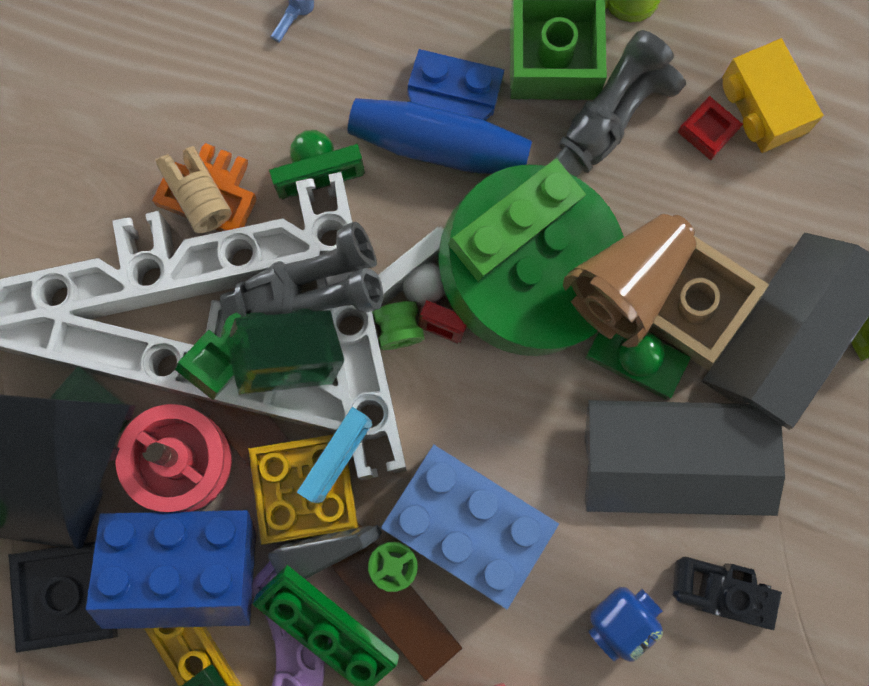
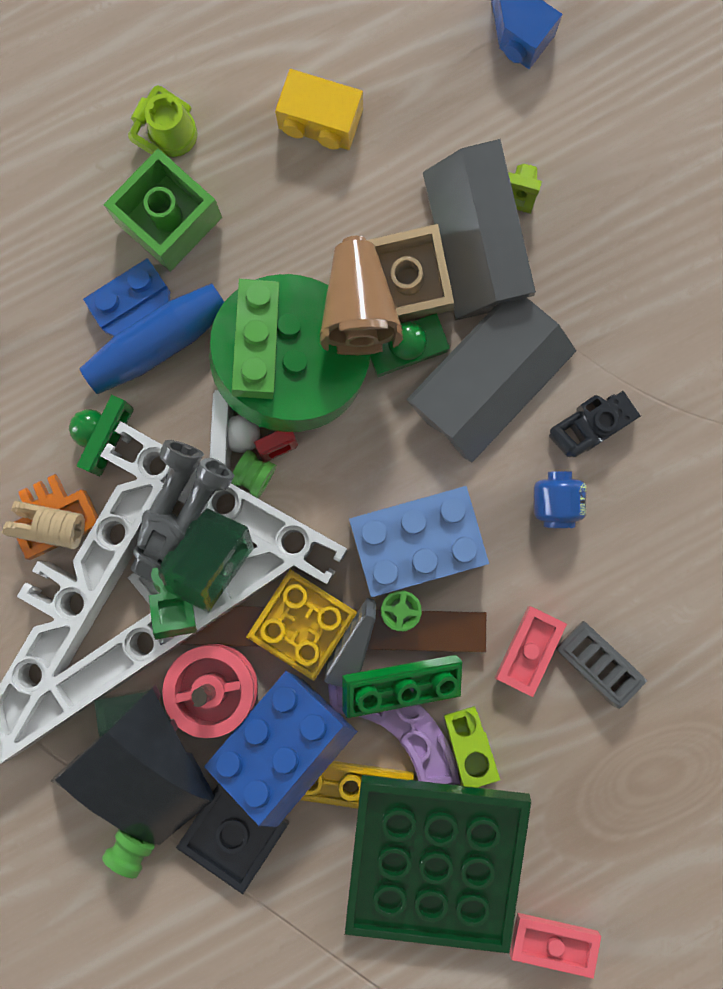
camera: 45 degrees left, 5 degrees up
(335, 456) = (302, 586): medium azure tile -> none
(601, 123) = (239, 228): dark grey piece -> none
(710, 128) = (304, 166): red tile -> none

